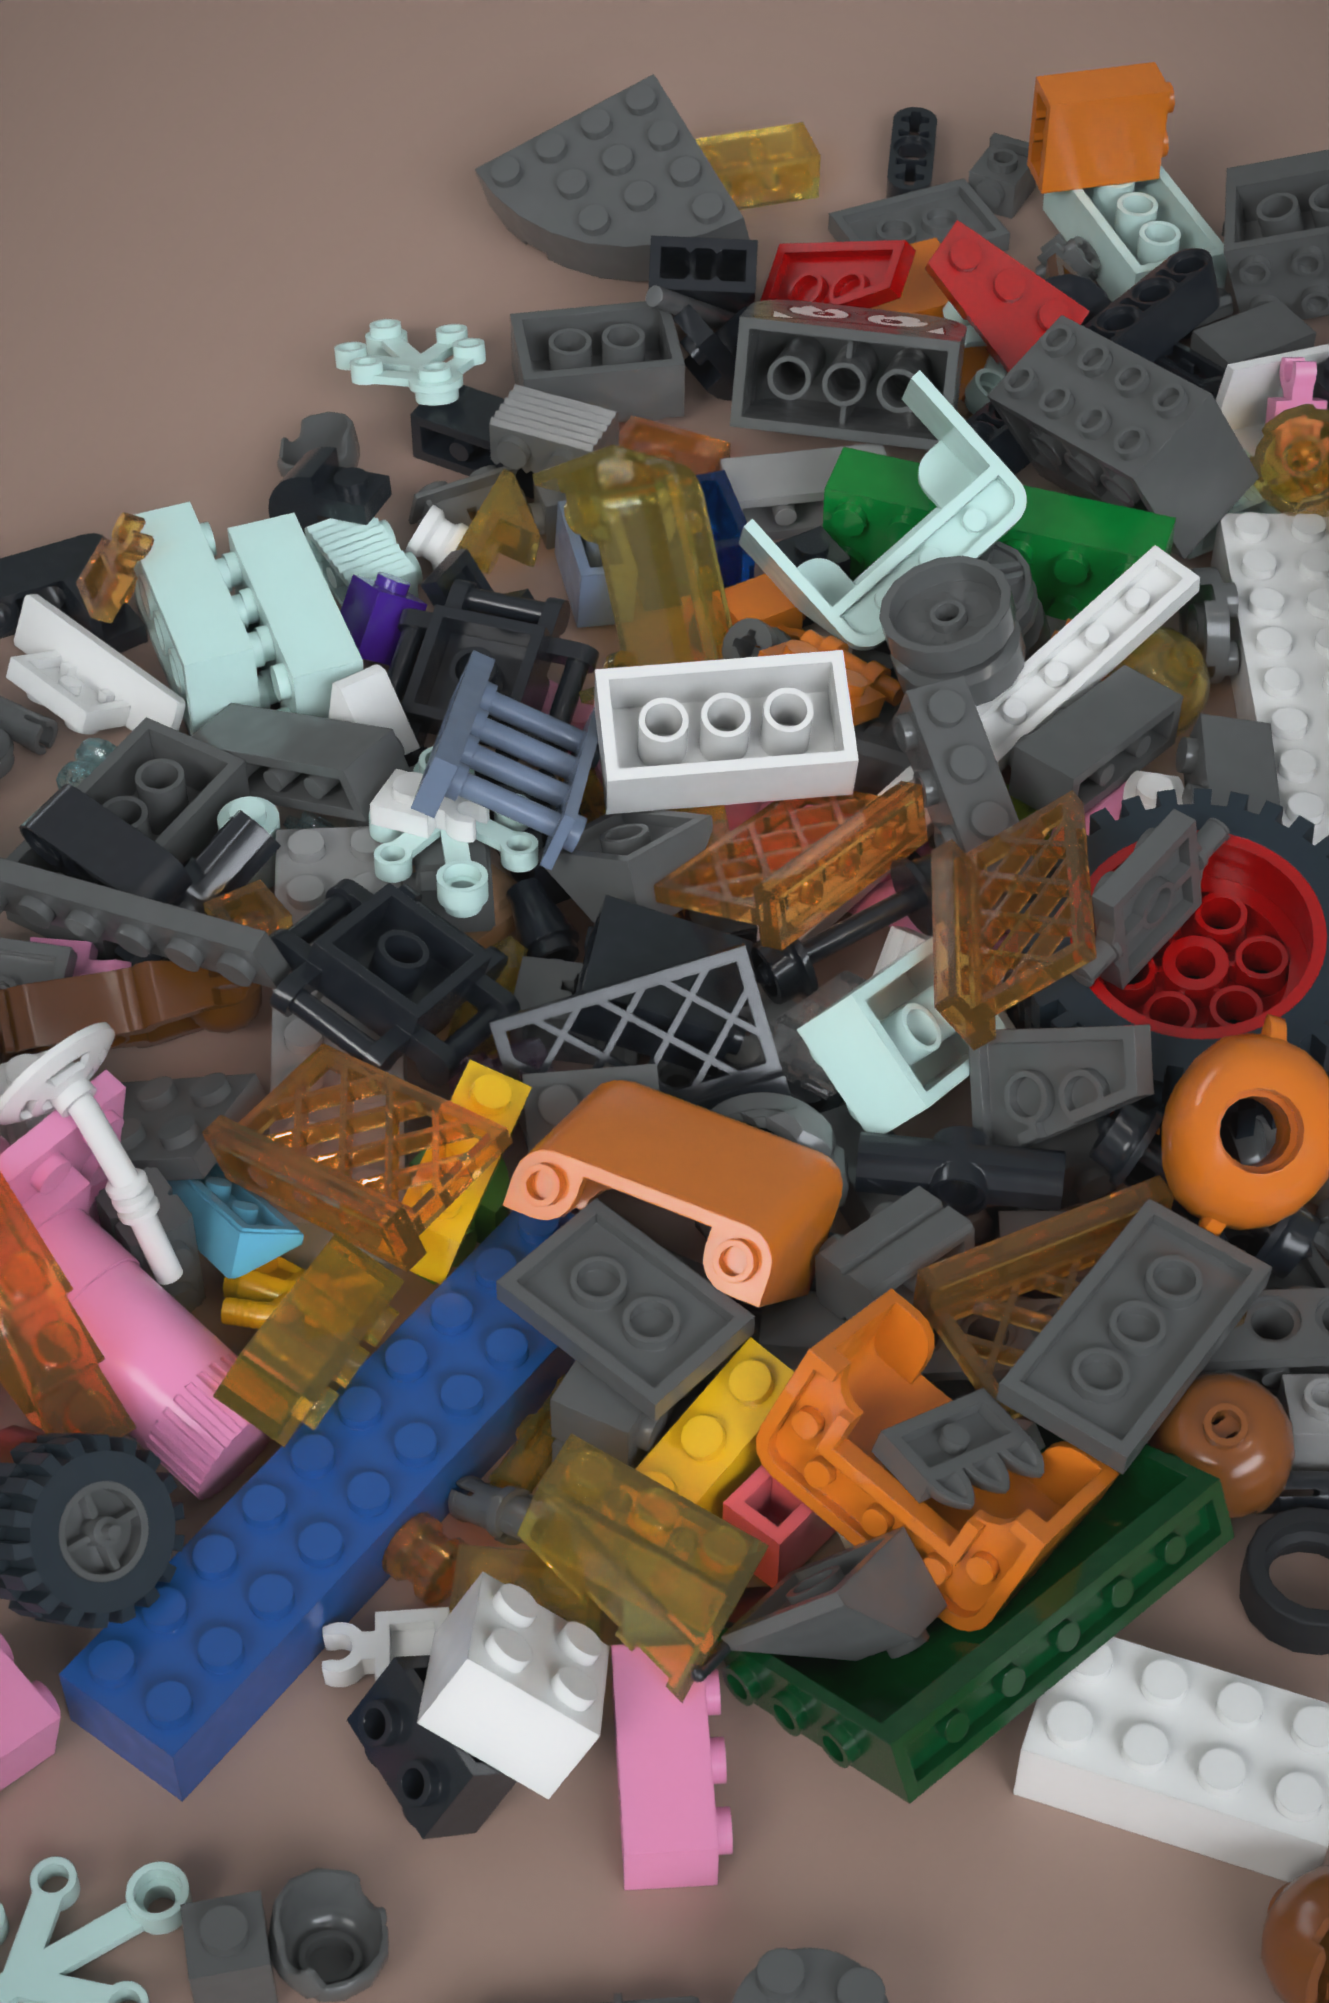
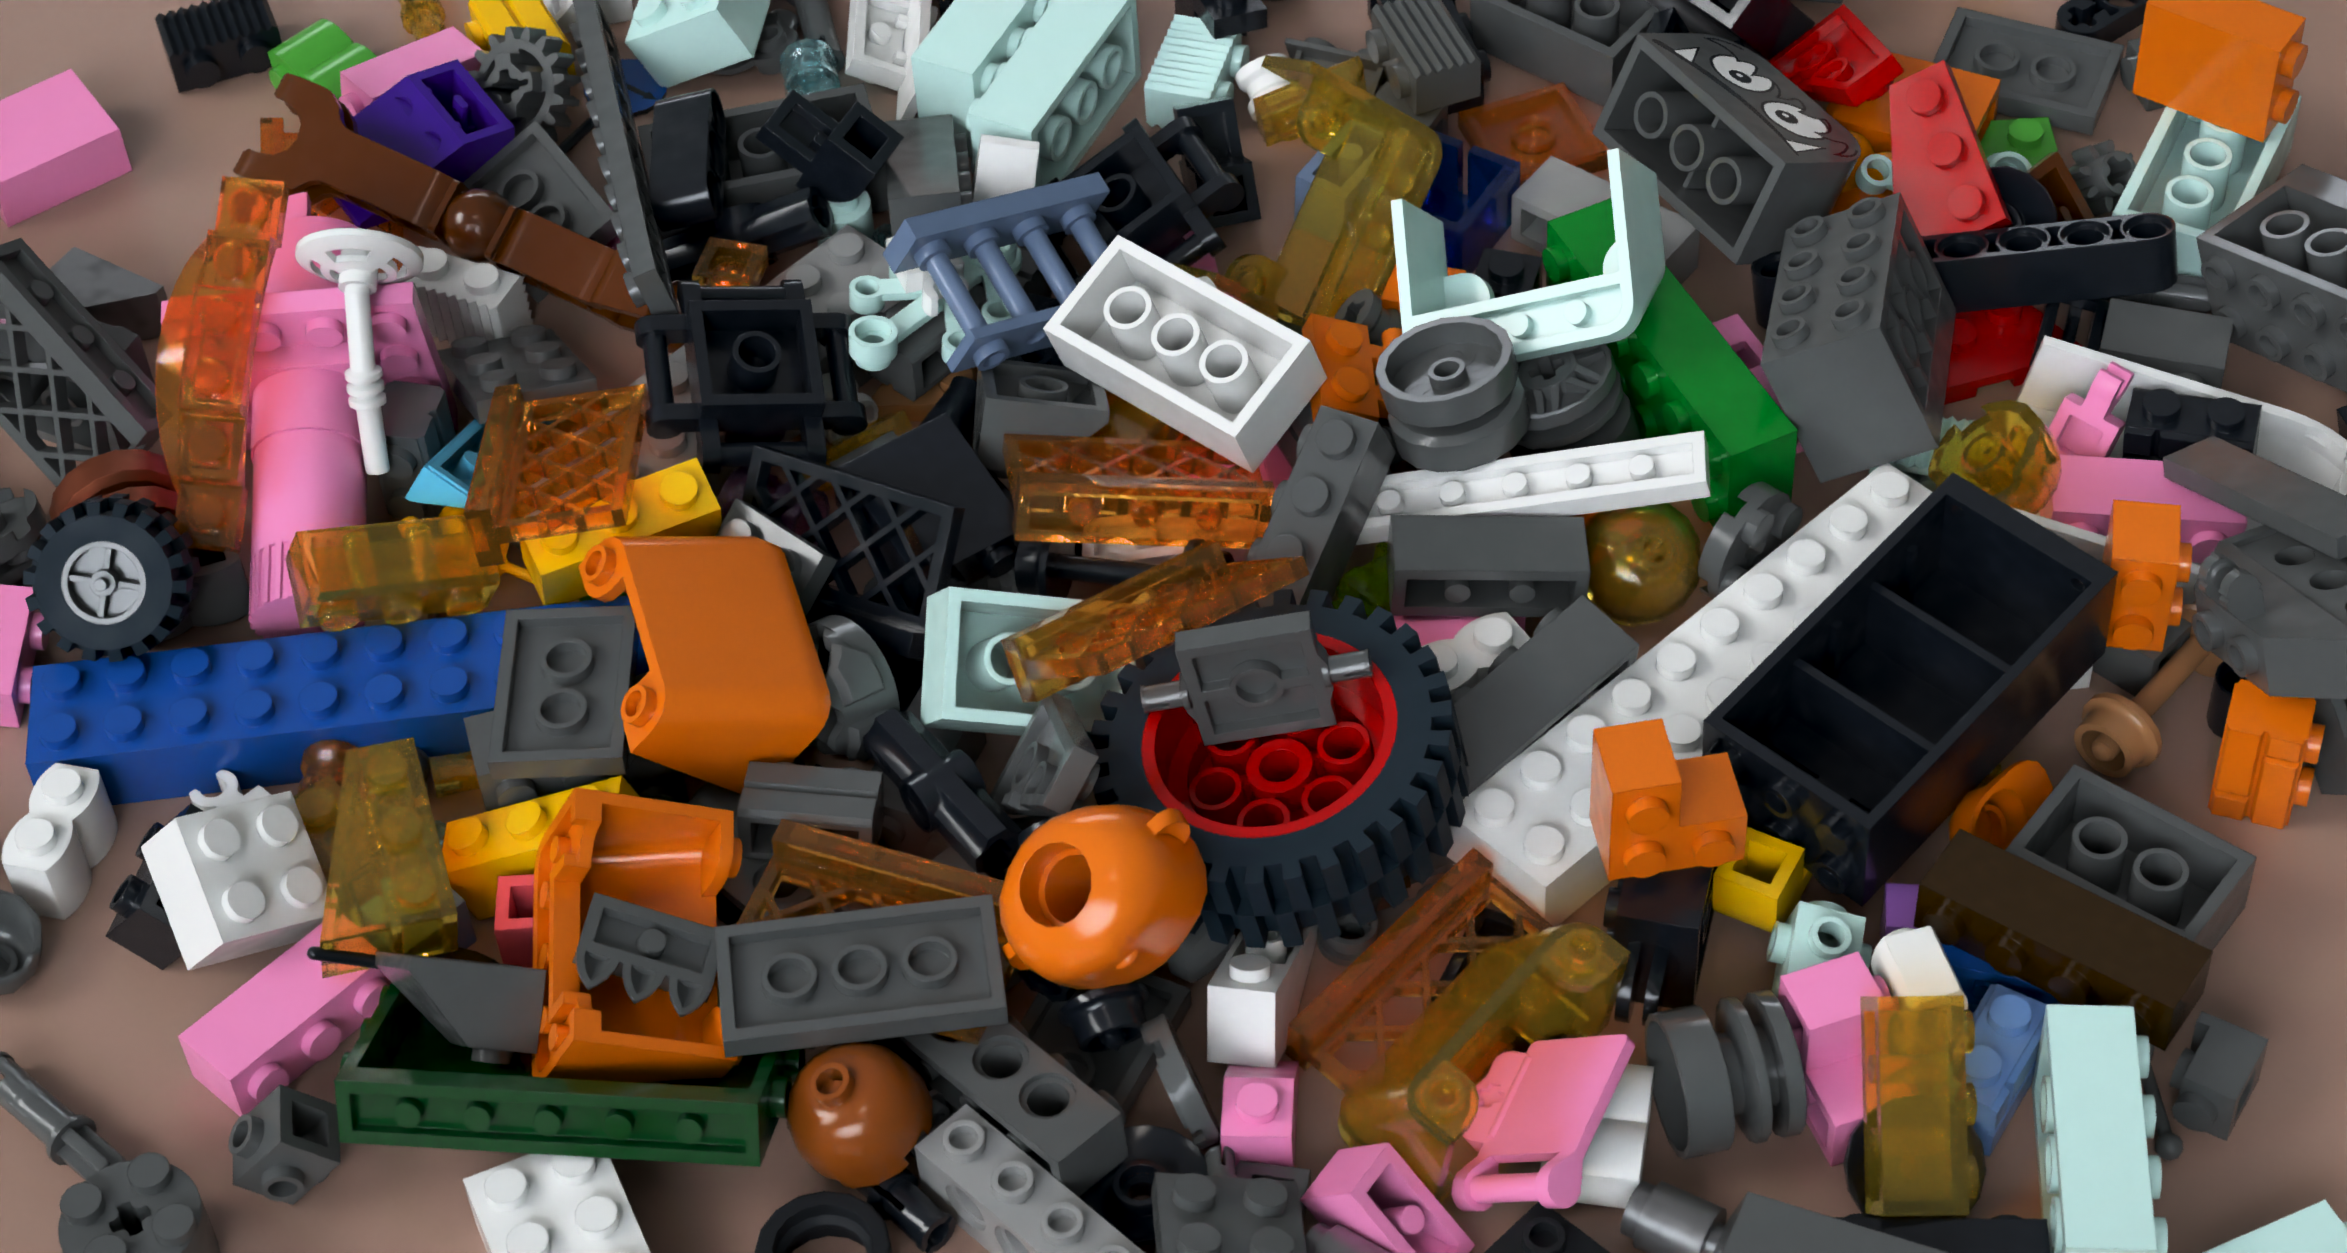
camera: 50 degrees right, 0 degrees up
(45, 748) = (807, 63): none -> clear light blue wheel
(240, 770) = (830, 155): none -> black brick
(263, 1798) = (60, 840): none -> white brick
(373, 613) = (1137, 98): dark purple brick -> none
(823, 1861) = (285, 1145): none -> dark grey brick

